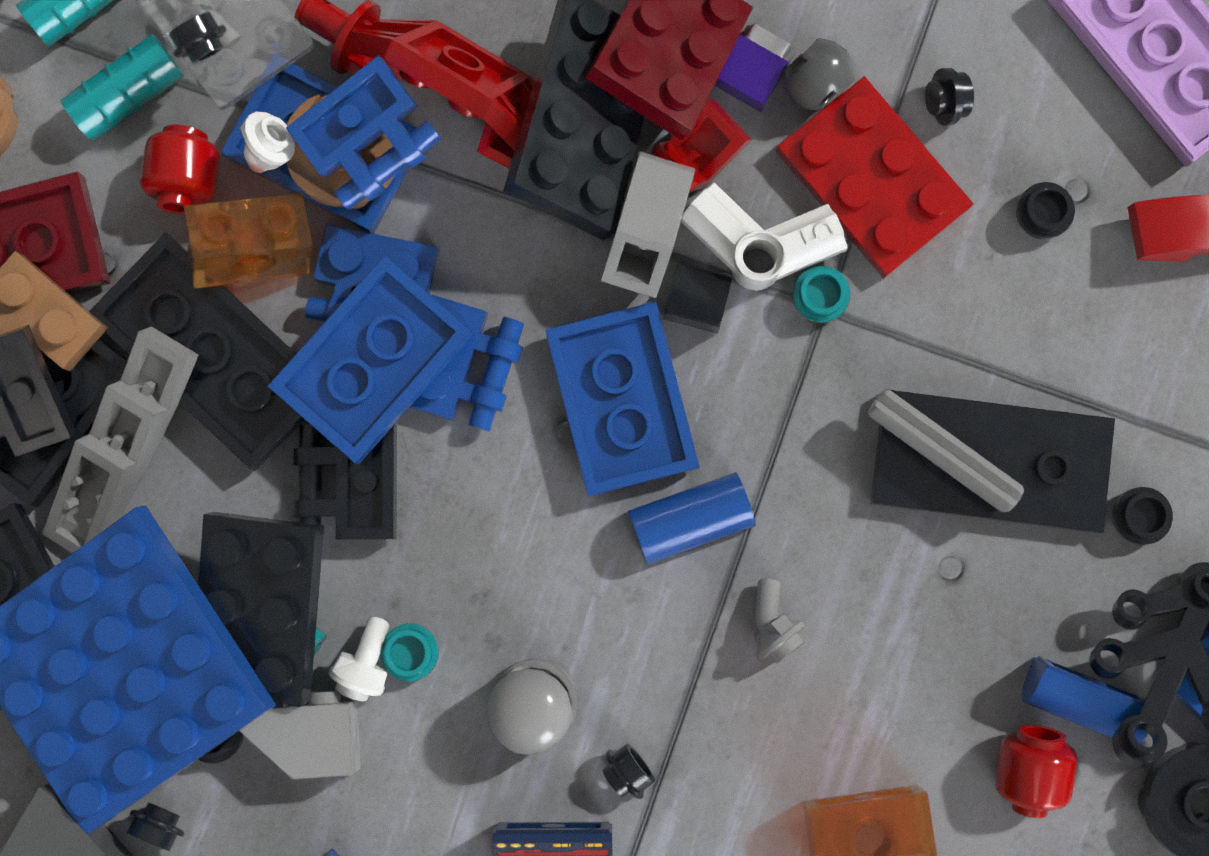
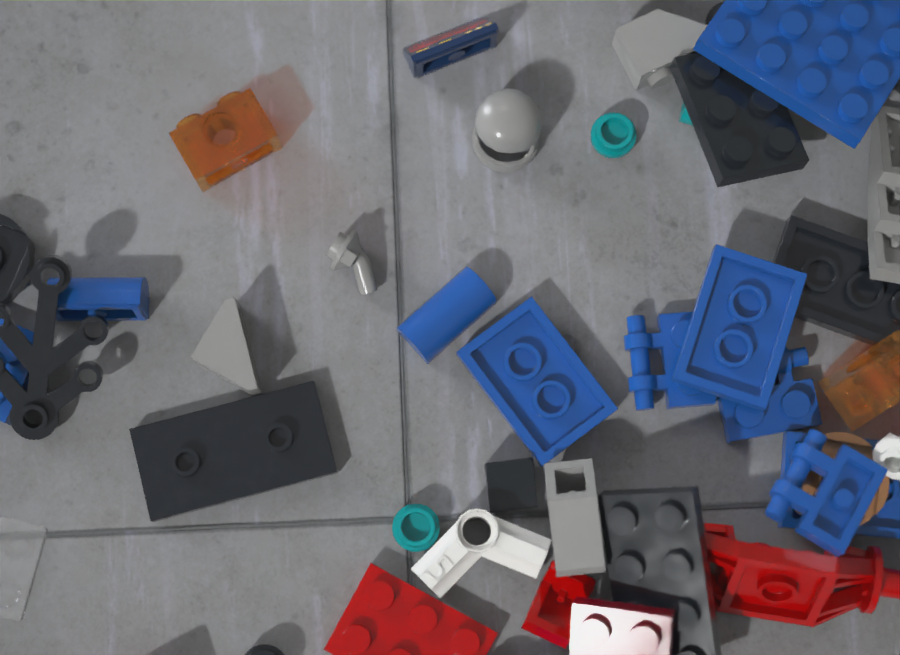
camera: 150 degrees right, 5 degrees down
(359, 673) = (642, 103): white plate -> none
(364, 492) = (697, 229): black plate -> none
(627, 772) = (418, 114): black plate -> none
(946, 451) = (274, 436): light grey axle -> none
(958, 573) = (227, 349): none -> light grey slope
(1036, 770) = (119, 231): red head -> none
(1142, 515) = (103, 455): black plate -> none

